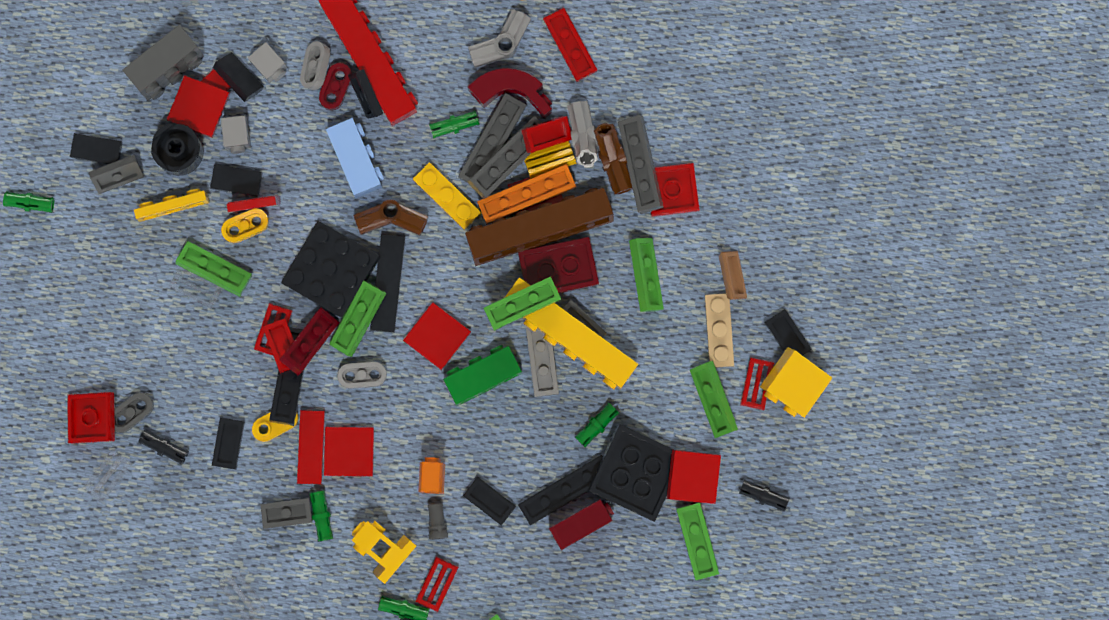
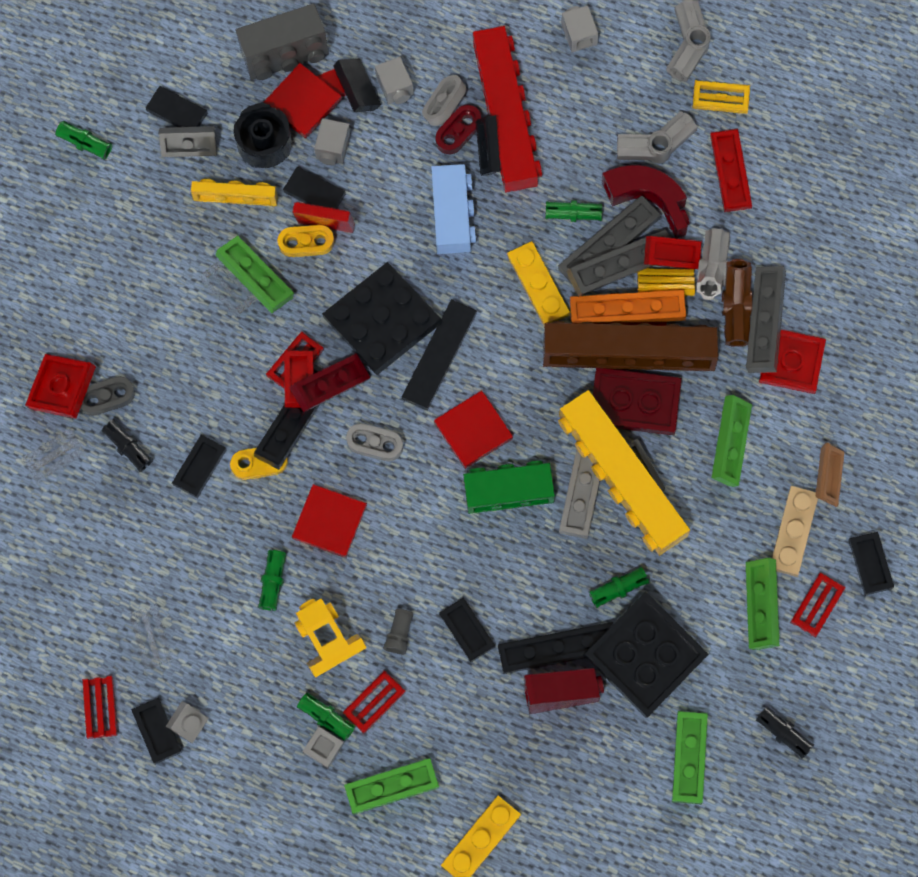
camera: 20 degrees right, 10 degrees down
(286, 513) = (234, 563): dark grey plate -> none
(311, 447) = (288, 502): red tile -> none
(357, 318) = (392, 379): bright green plate -> none
(405, 218) = (483, 290): reddish brown piece -> none
(431, 476) = (411, 576): orange brick -> none
(522, 303) = (581, 417): bright green plate -> none
(693, 476) = (710, 682): red tile -> none
(795, 383) = (863, 615): yellow brick -> none

